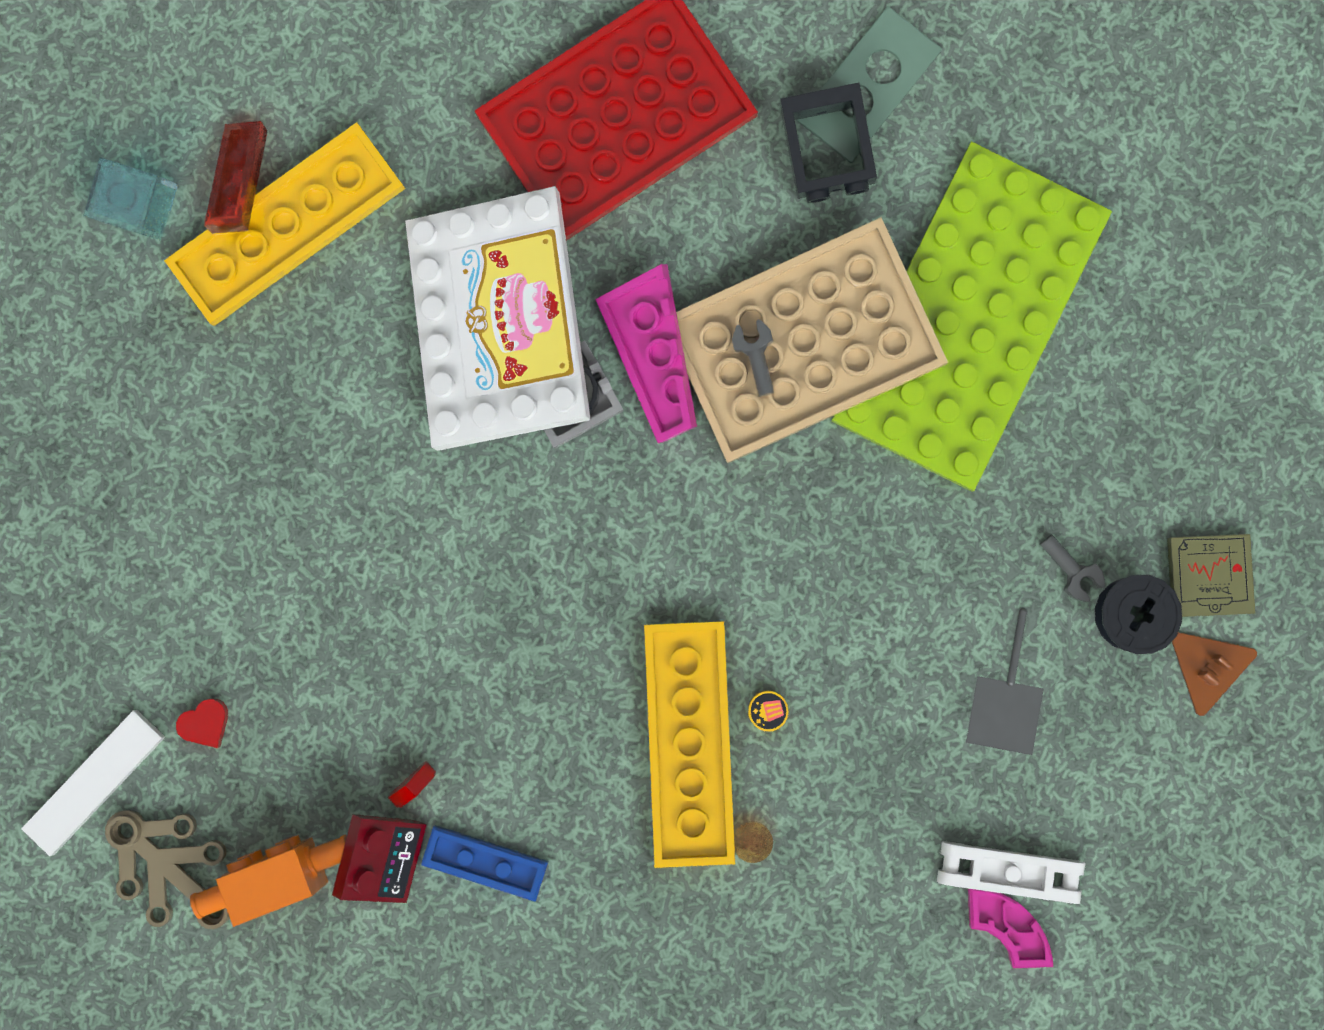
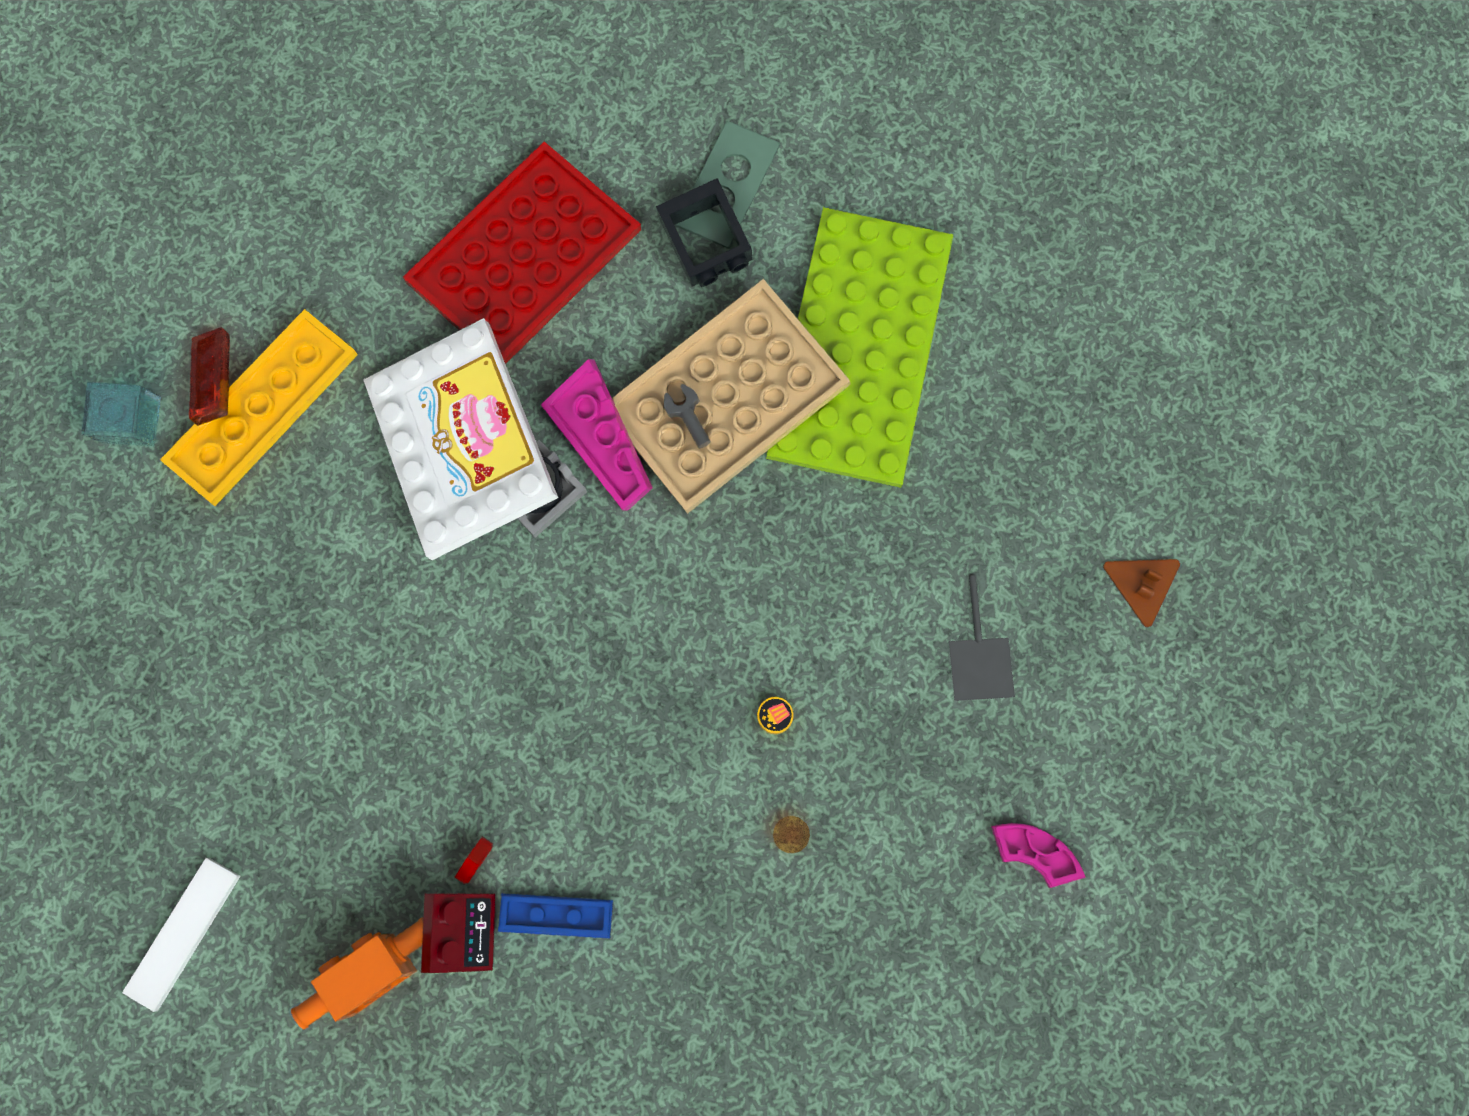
camera: 15 degrees left, 10 degrees down
(161, 862) = (258, 992): dark tan plant -> none
(204, 724) = (274, 854): red tile -> none
(689, 744) = (713, 762): yellow plate -> none
(1011, 872) = (1024, 802): white plate -> none
(1073, 570) = (1005, 531): dark grey bar -> none
(1158, 606) = (1088, 550): black piece -> none
(1212, 574) = (1121, 507): olive tile -> none

